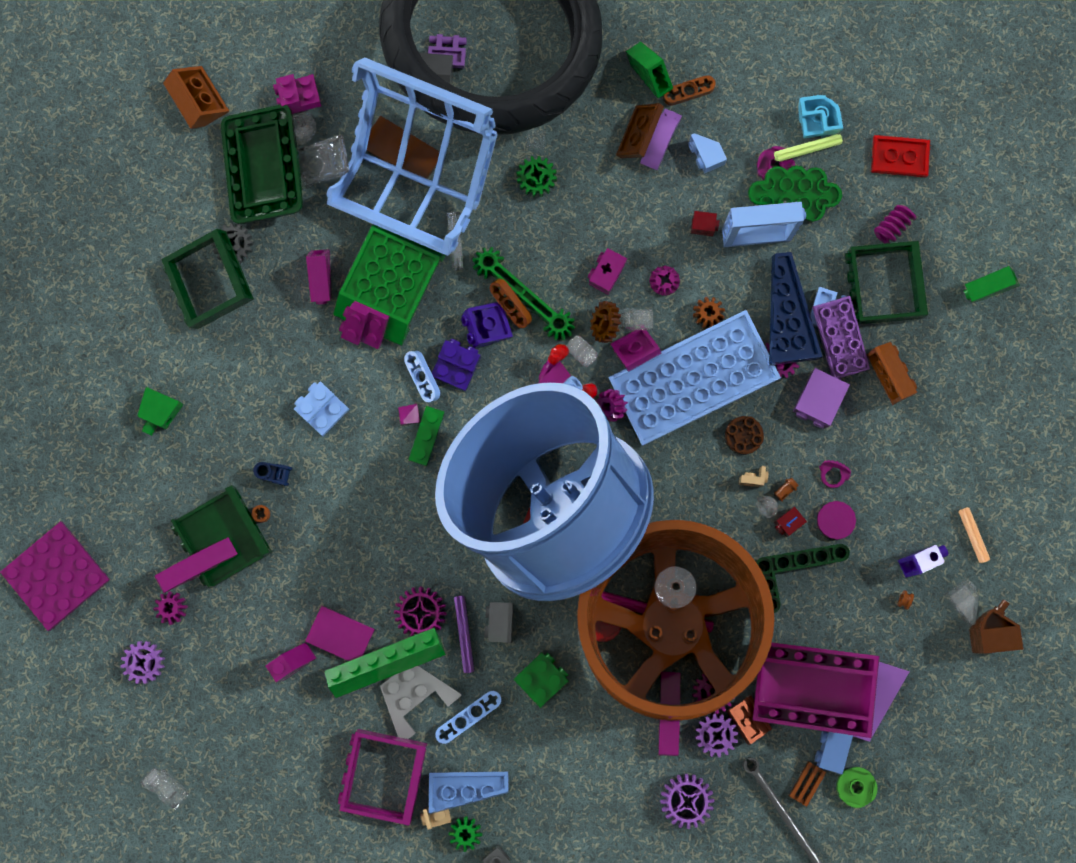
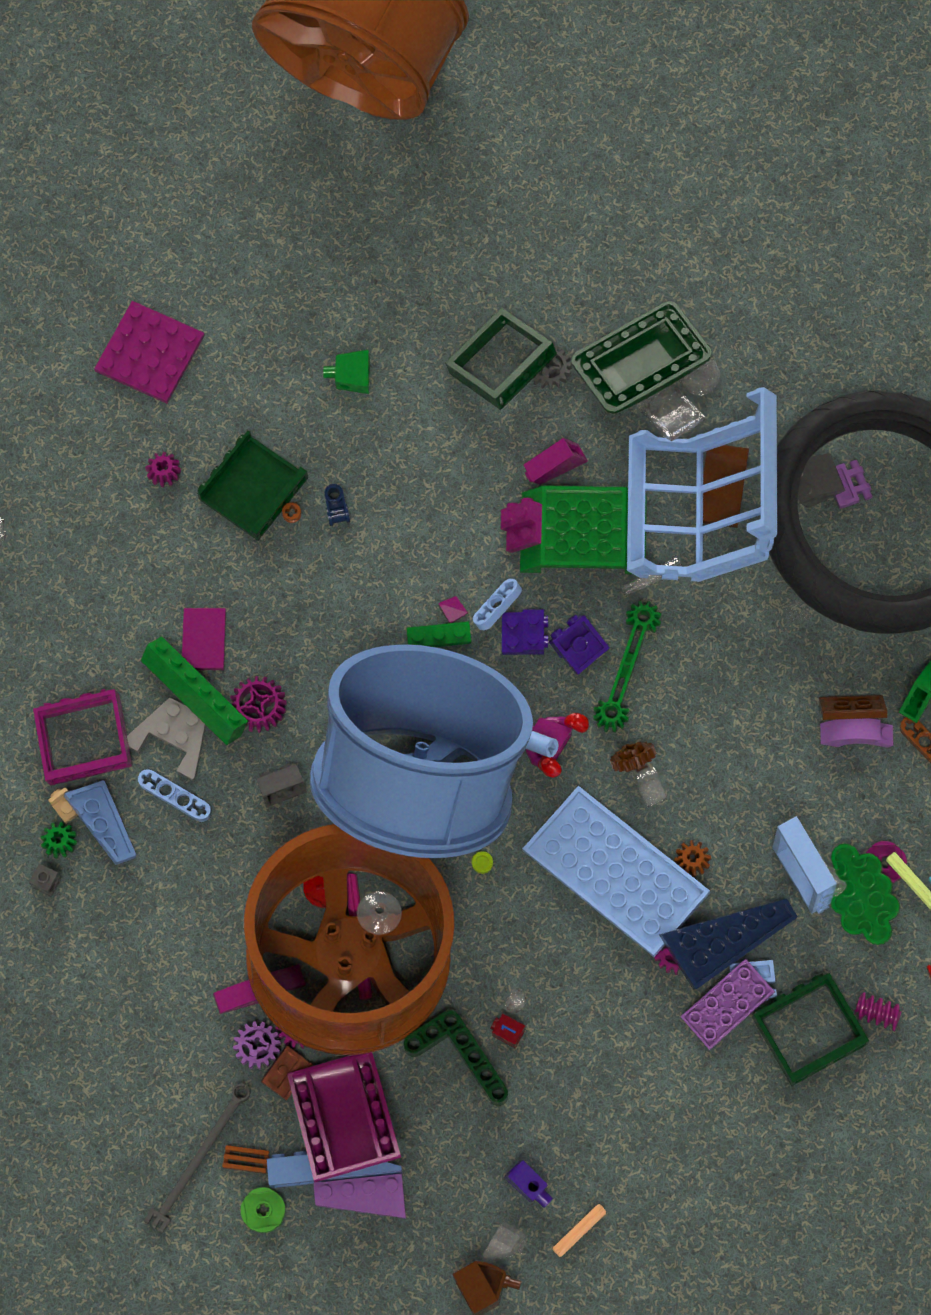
camera: 70 degrees right, 10 degrees down
(147, 669) = (100, 476): medium lavender gear -> none
(195, 96) = (684, 266): dark orange slope -> none
(195, 565) = (214, 472): magenta slope -> none
(290, 662) = (156, 601): magenta slope -> none
(297, 93) = (732, 360): magenta plate -> none
(320, 408) = (421, 522): light blue plate -> none
(464, 636) = (254, 756): medium lavender axle -> none
(503, 301) = (610, 657): dark orange beam -> none
(541, 679) = (242, 850): green plate -> none
(543, 175) = (763, 620): green gear -> none
(582, 351) = (592, 747): clear gear -> none
(610, 260) = (700, 740): magenta brick -> none
(612, 404) = (549, 799): magenta gear -> none
(635, 349) = (619, 799): magenta plate -> none
(665, 289) = (698, 805): magenta gear -> none
(680, 807) = (182, 1034): medium lavender gear -> none
(704, 223) = (784, 810): dark red brick -> none
(708, 153) = (864, 788): light blue slope -> none
(744, 435) = (580, 949): reddish brown tile -> none
(750, 479) = (535, 972): tan bracket -> none
(787, 488) = (541, 1014): dark orange pin -> none
(820, 398) = (652, 1010): medium lavender brick -> none
(828, 465) = (585, 1067): magenta piece -> none
(836, 520) = (532, 1079): magenta tile -> none
(892, 372) = (714, 1072): dark orange slope -> none
(905, 600) = (478, 1183): dark orange bush -> none
(991, 285) = (860, 1141): green slope -> none

